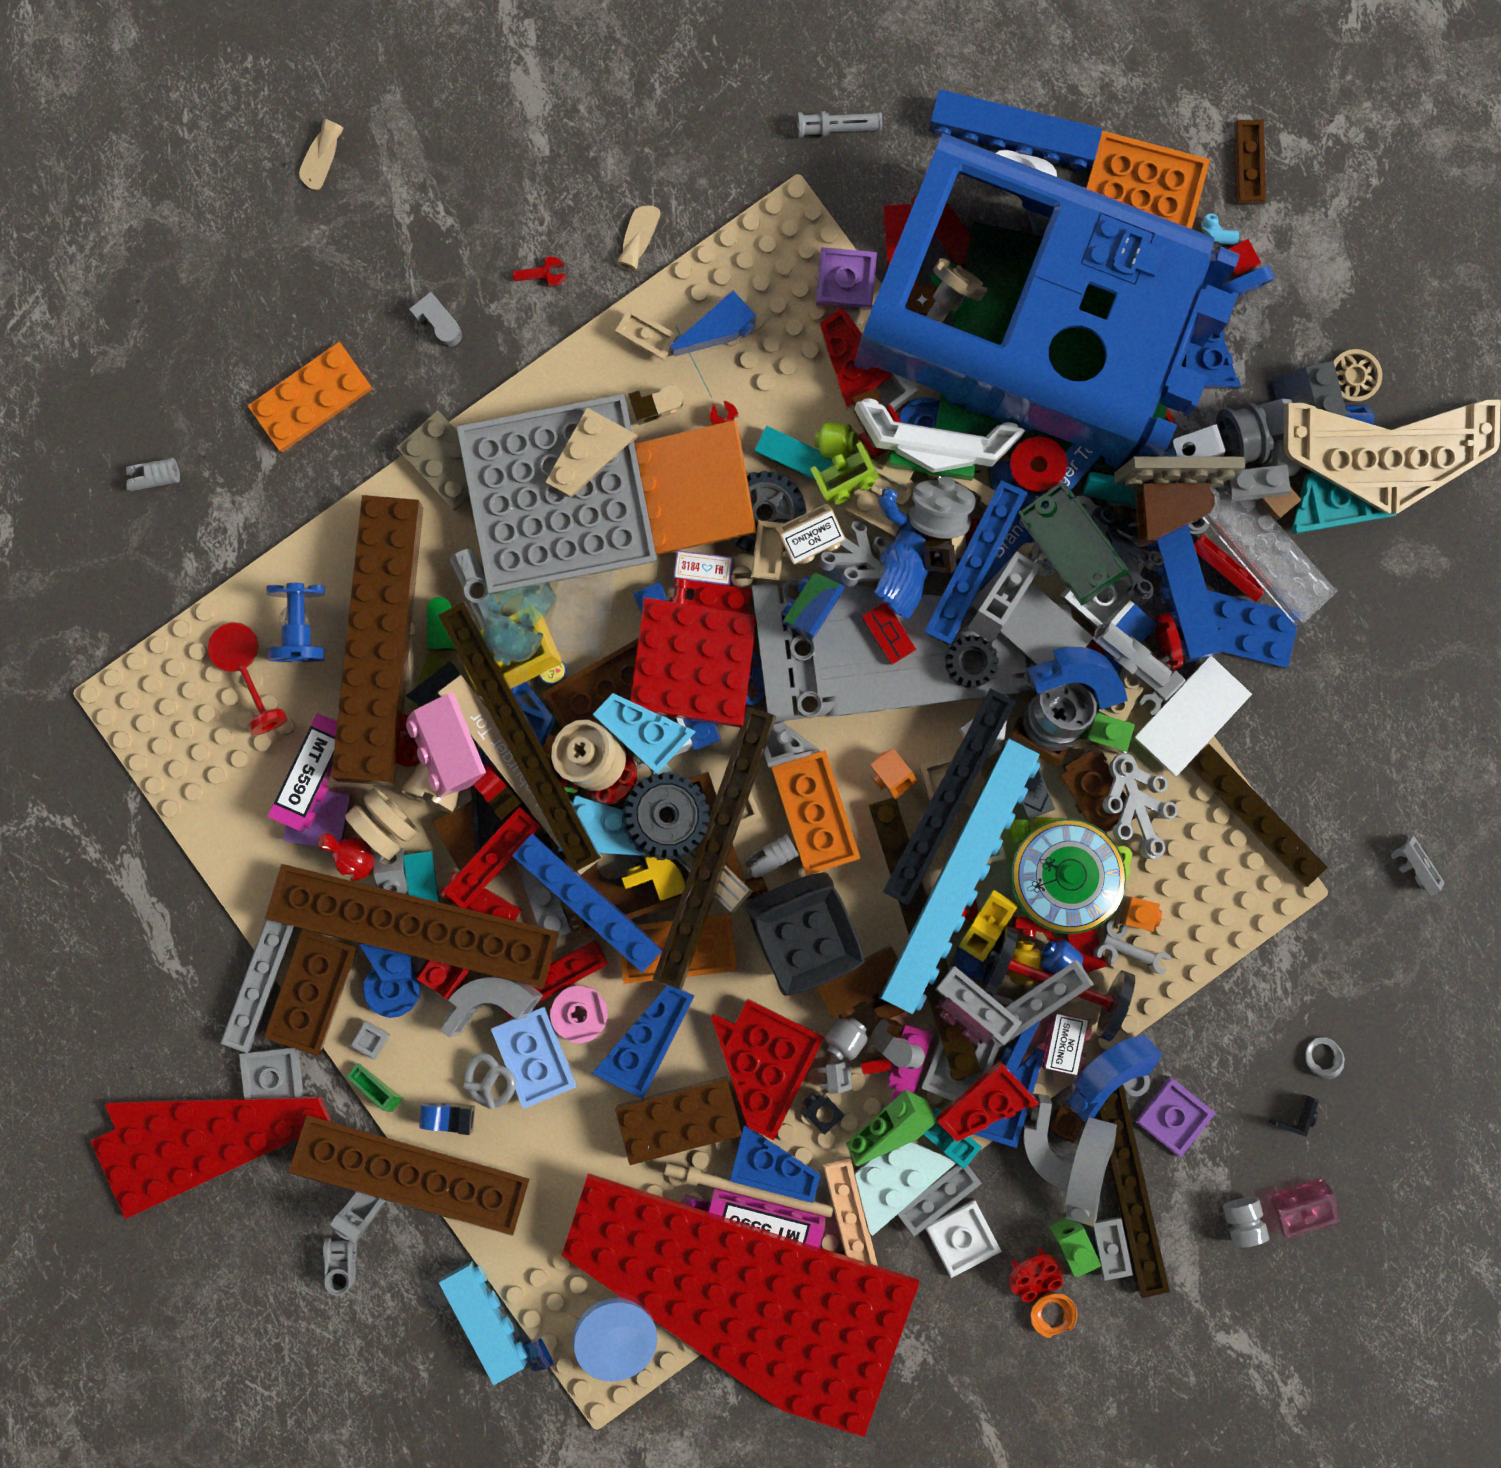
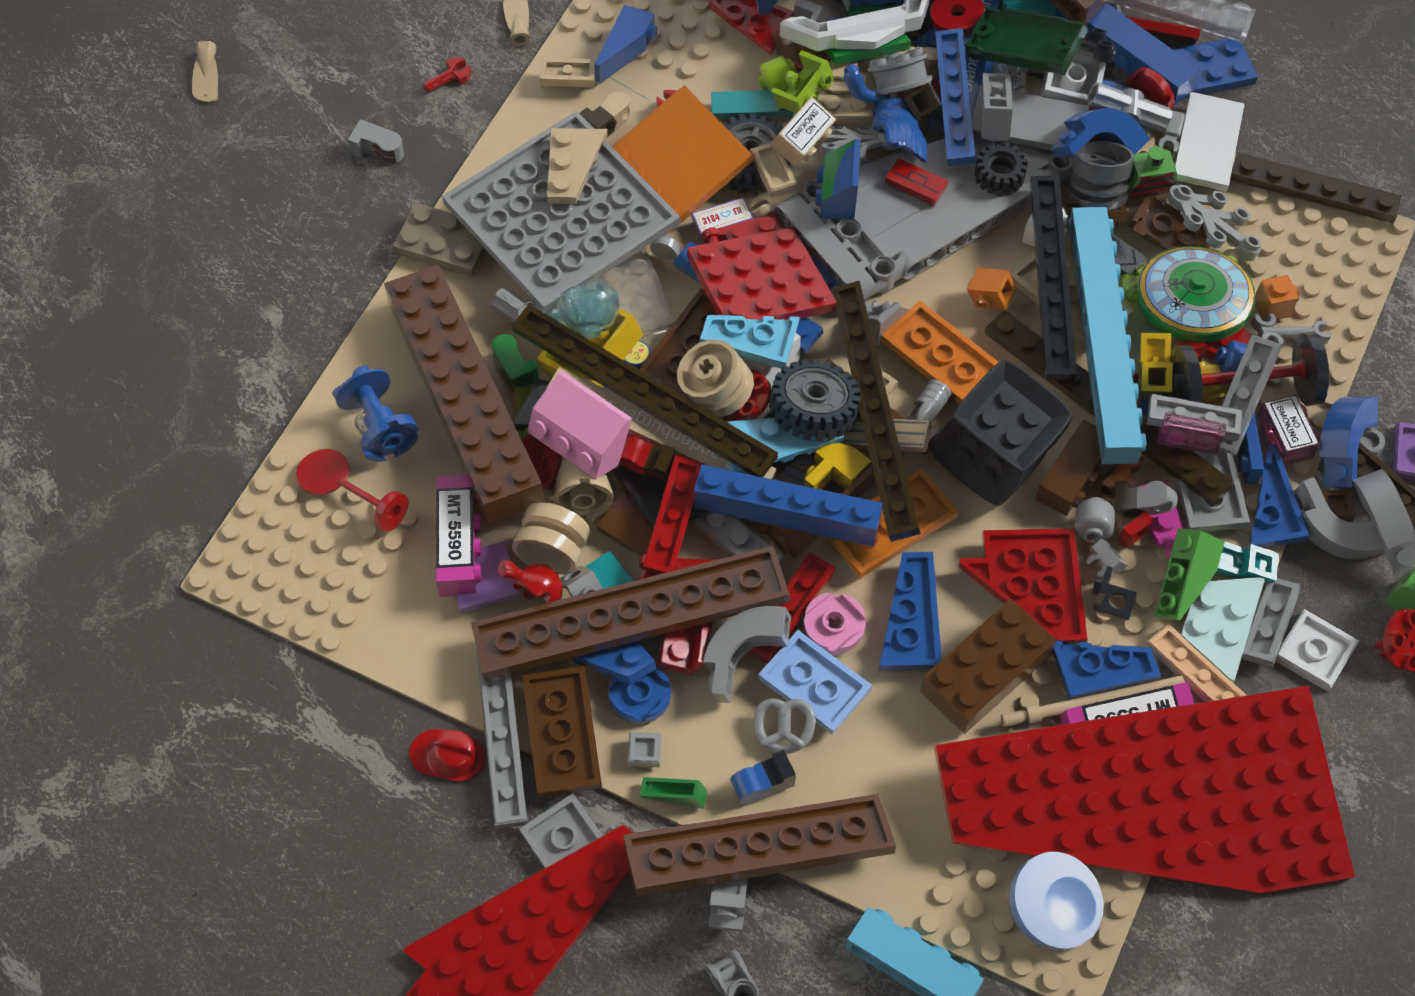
camera: 30 degrees left, 25 degrees down
(152, 474) = (171, 370): light grey hinge -> none
(218, 955) = (447, 754): none -> red piece
(310, 397) = (290, 251): orange plate -> none
(538, 1354) = (990, 965): clear blue tile -> none
(634, 577) = (665, 247): none -> light grey tile
(986, 1101) = (1256, 504): red wing -> none

